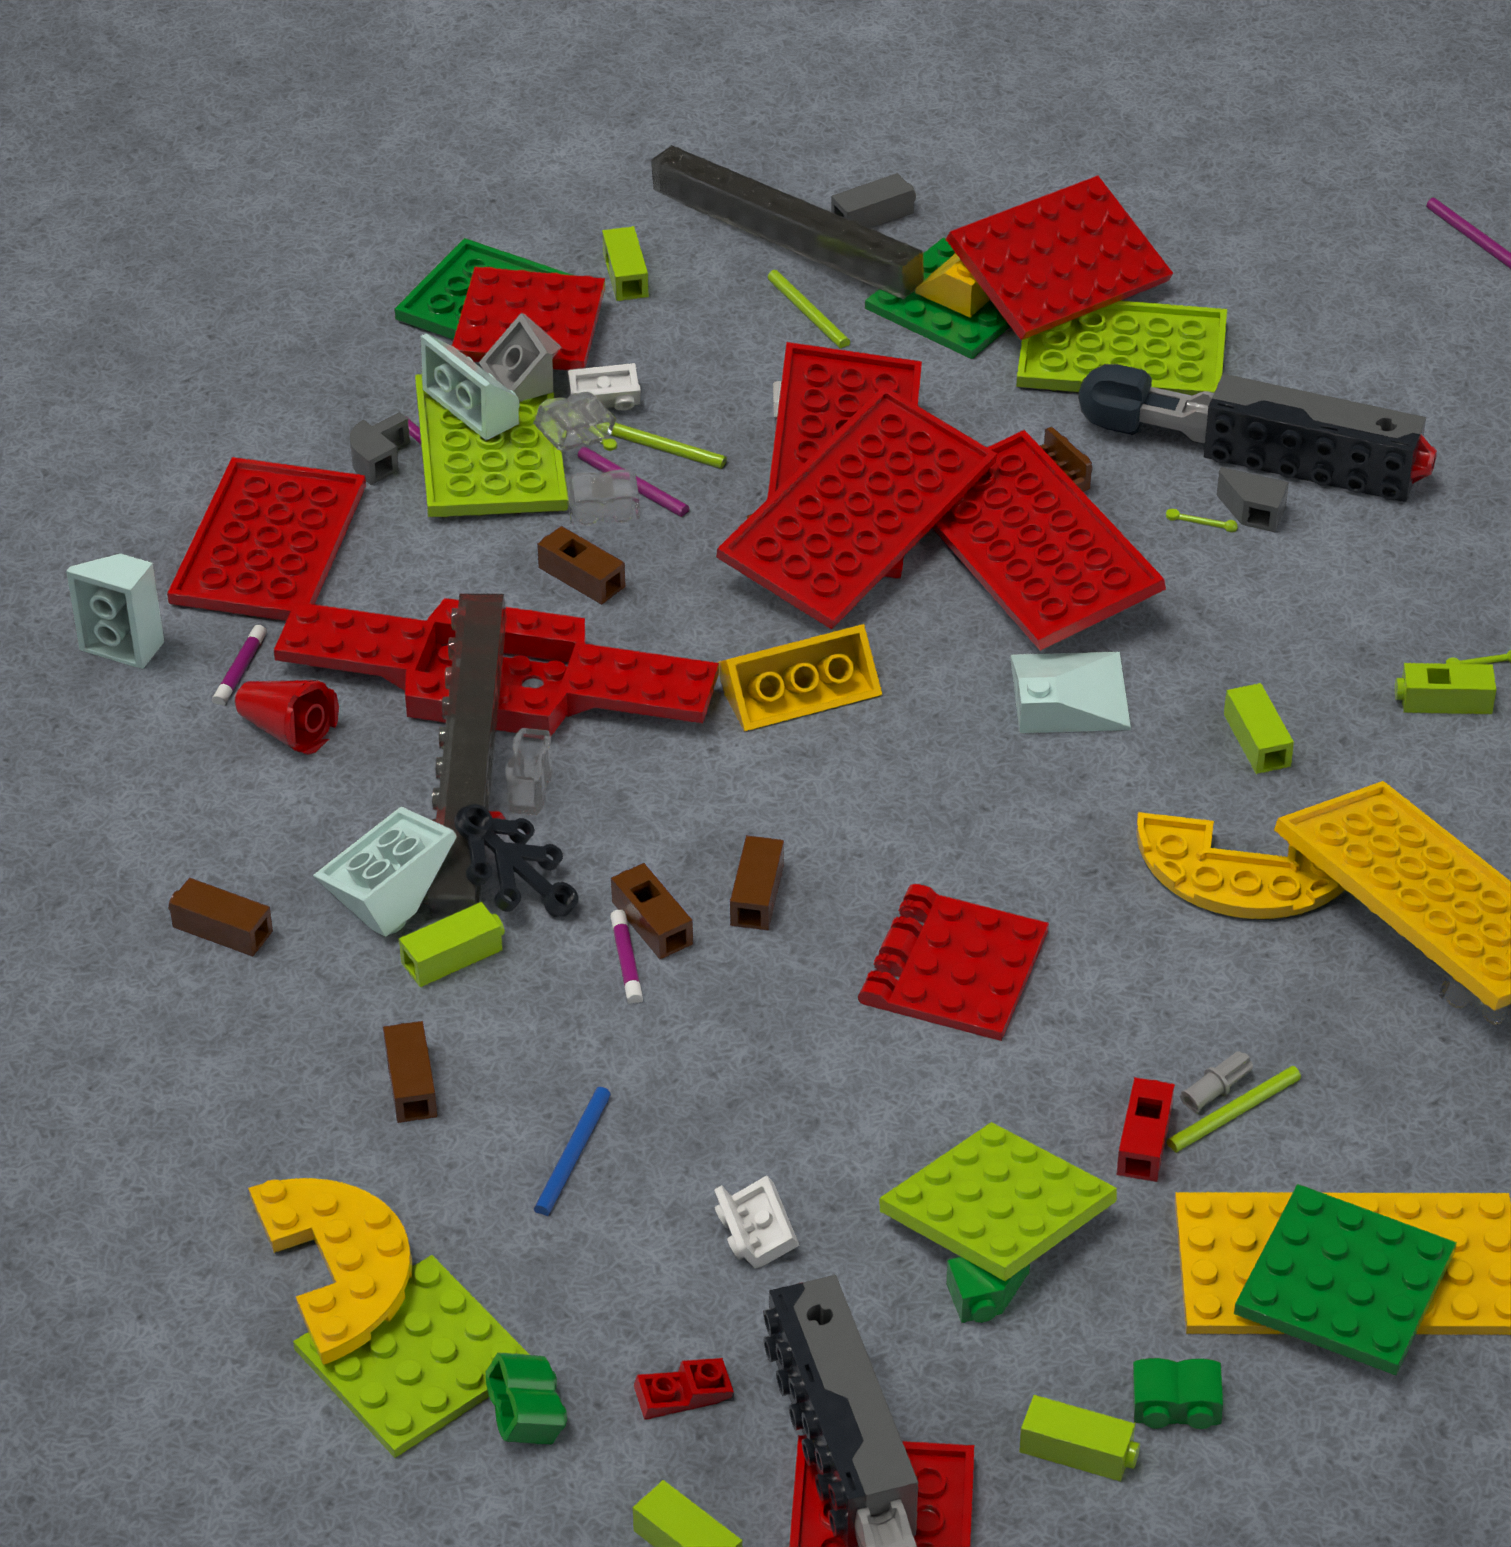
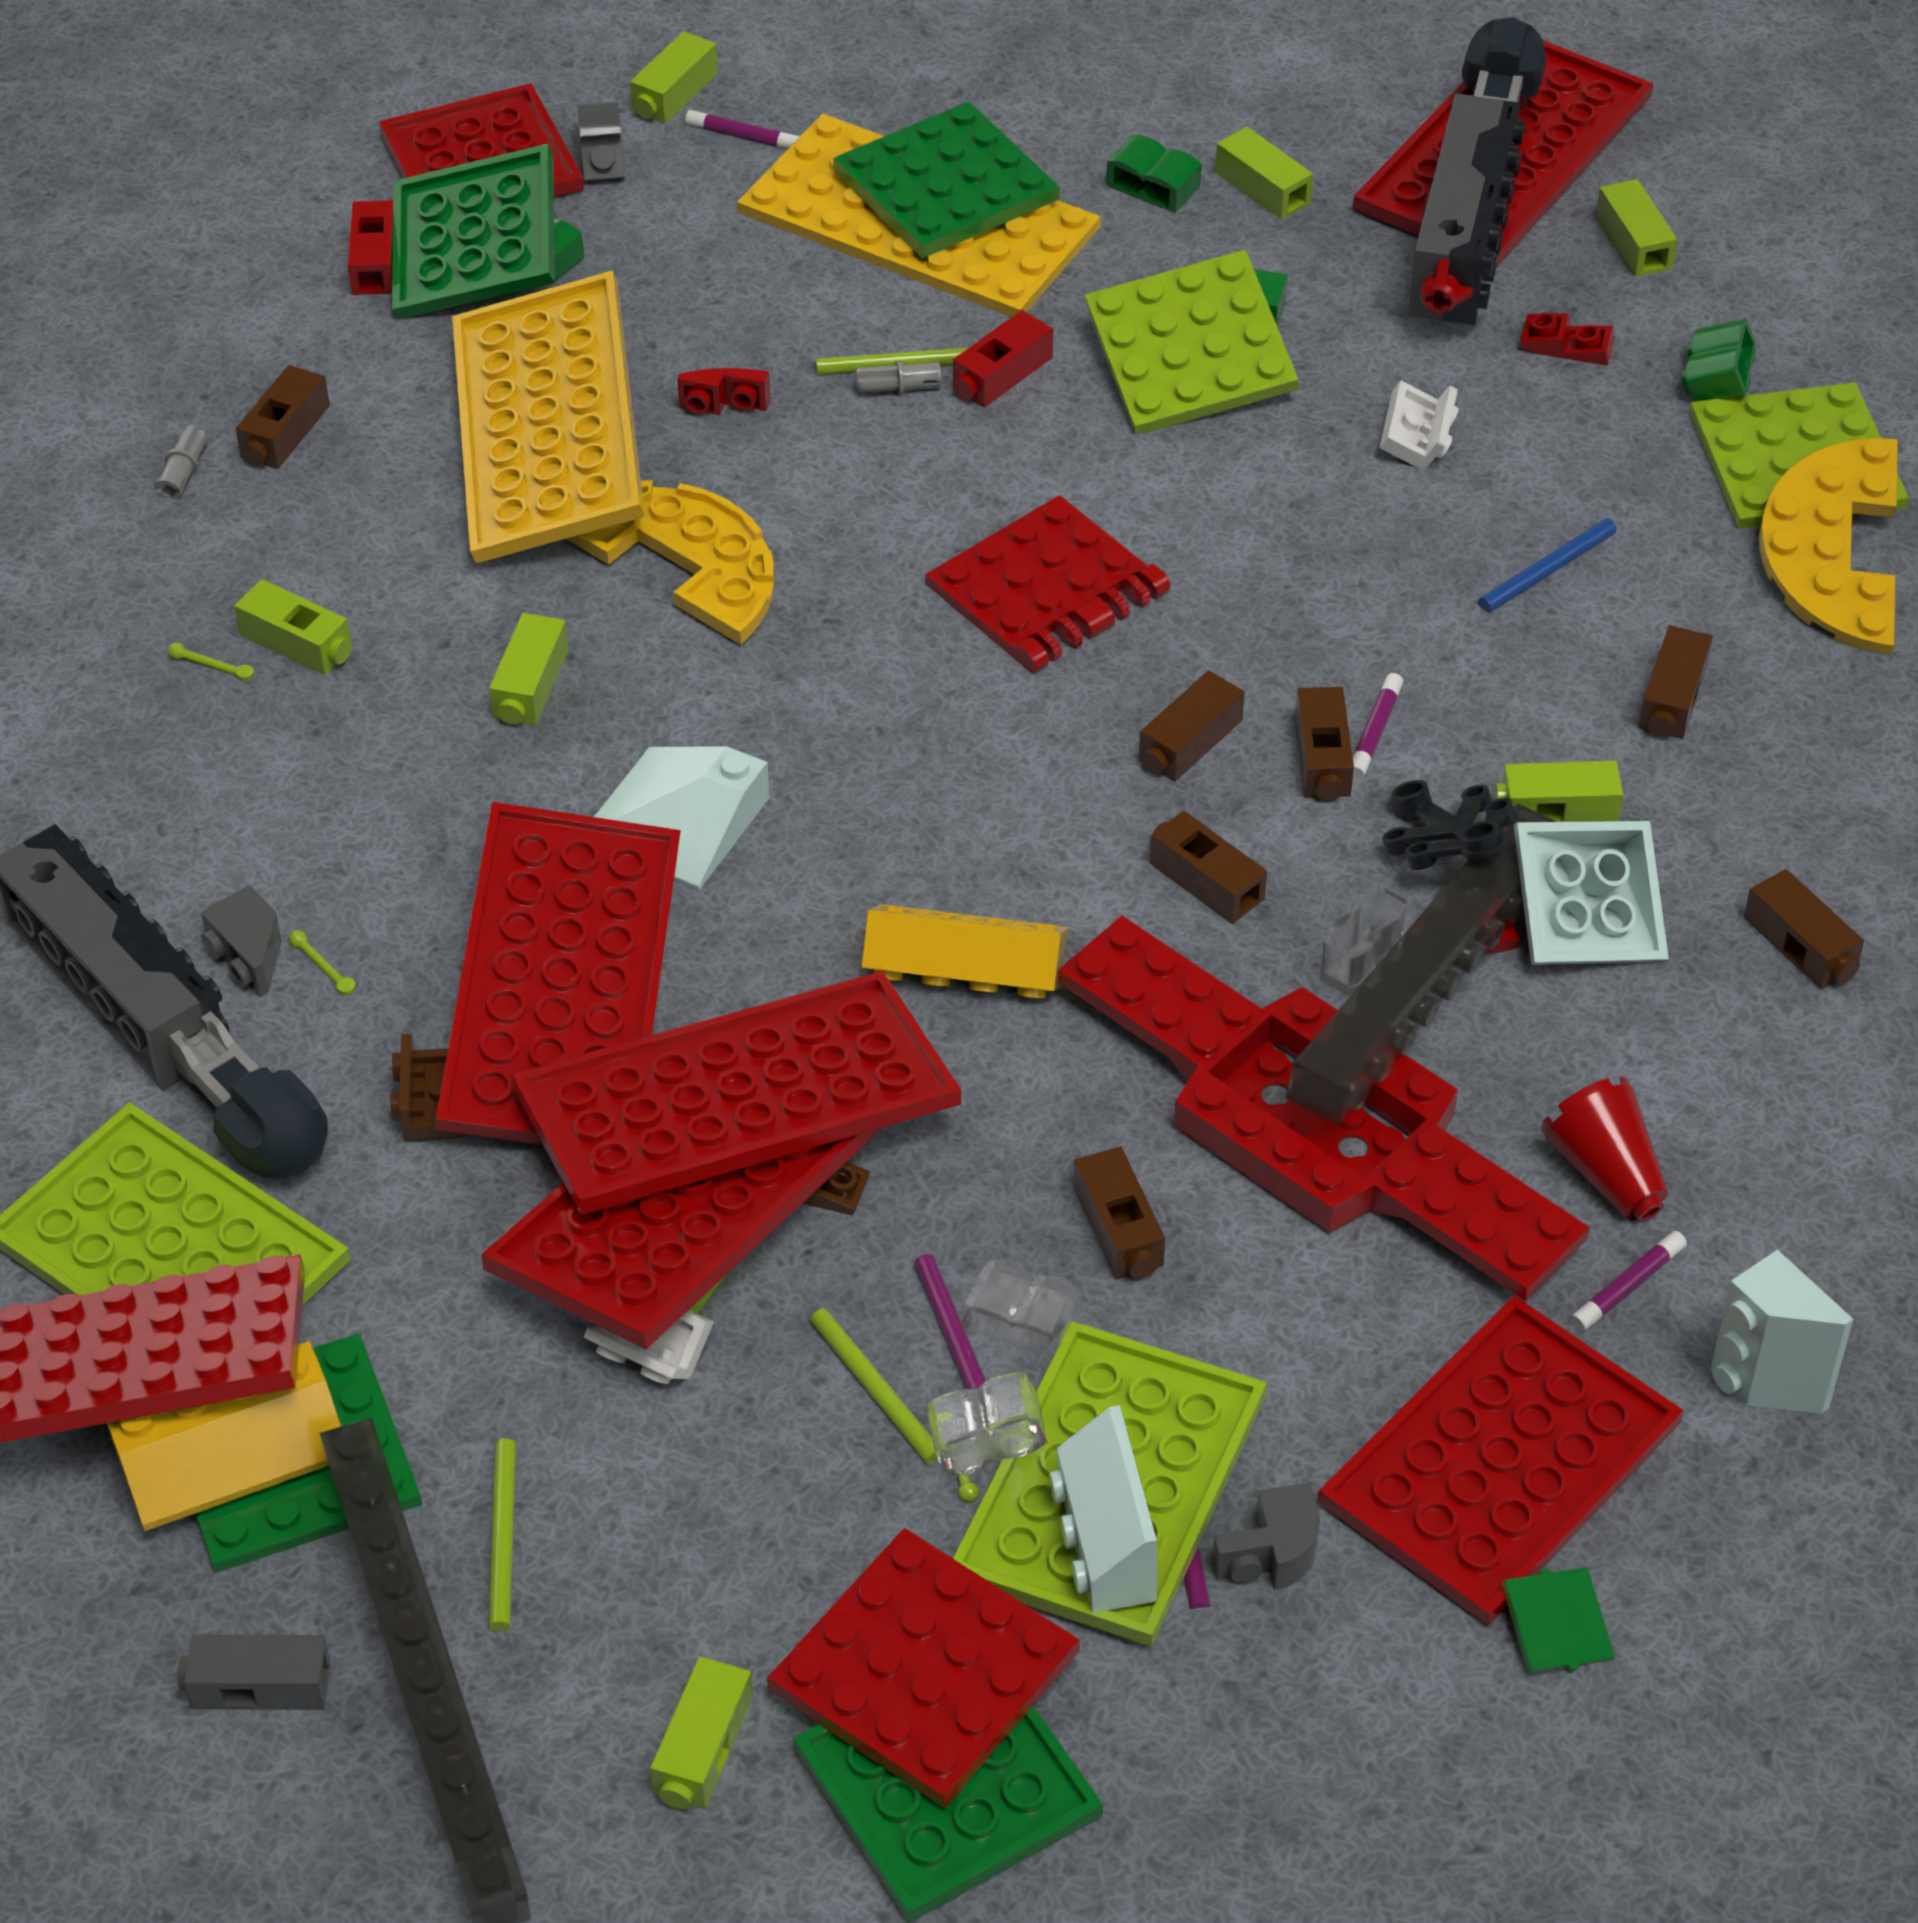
camera: 150 degrees left, 5 degrees up
(192, 475) = (1558, 1620): none -> green piece
(523, 359) = (1002, 1538): light grey slope -> none
(612, 385) = (897, 1492): white bracket -> none
(674, 788) = (1207, 866): none -> reddish brown brick
(1347, 997) = (714, 388): none -> red slope

